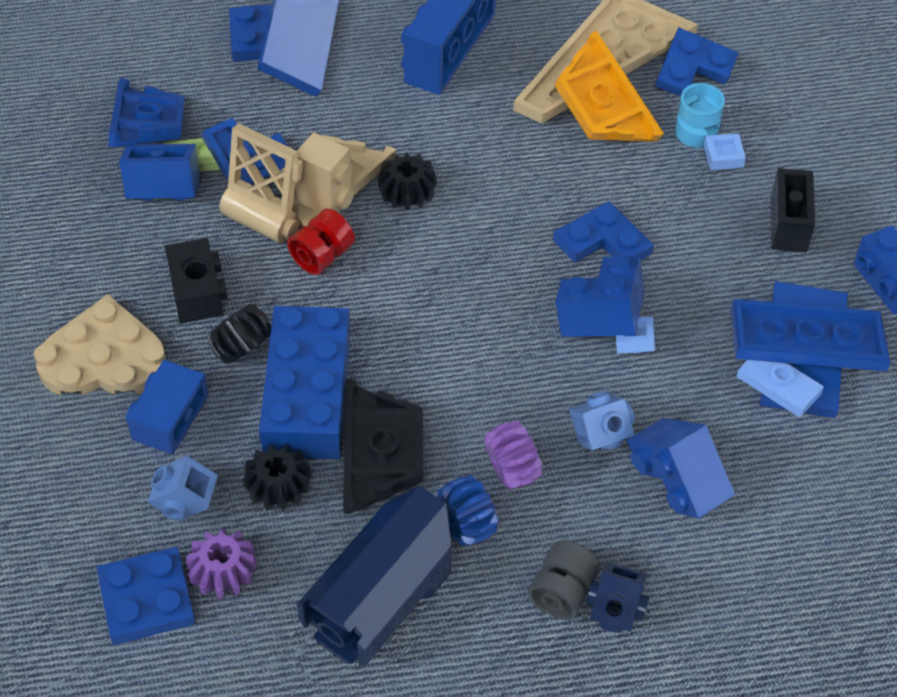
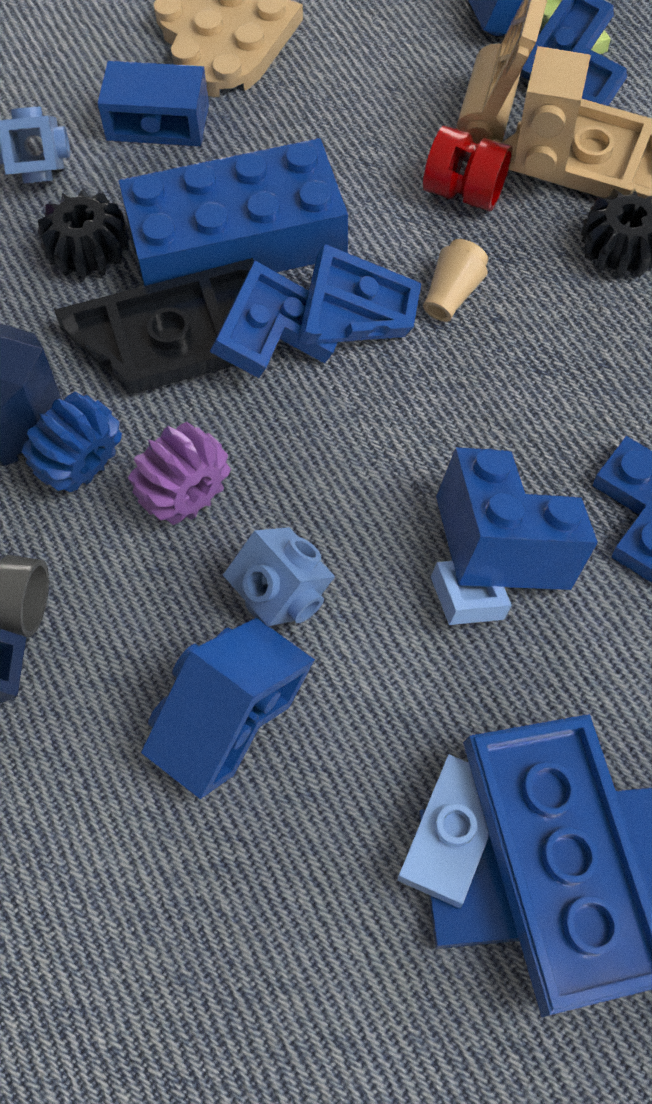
camera: 75 degrees right, 10 degrees up
(194, 280) = (352, 68): black brick -> none
(239, 334) = (271, 121): black gear -> none
(404, 277) = (456, 276): none -> tan cone
(407, 377) = (261, 314): none -> blue plate
(408, 330) = (356, 300): none -> blue wing

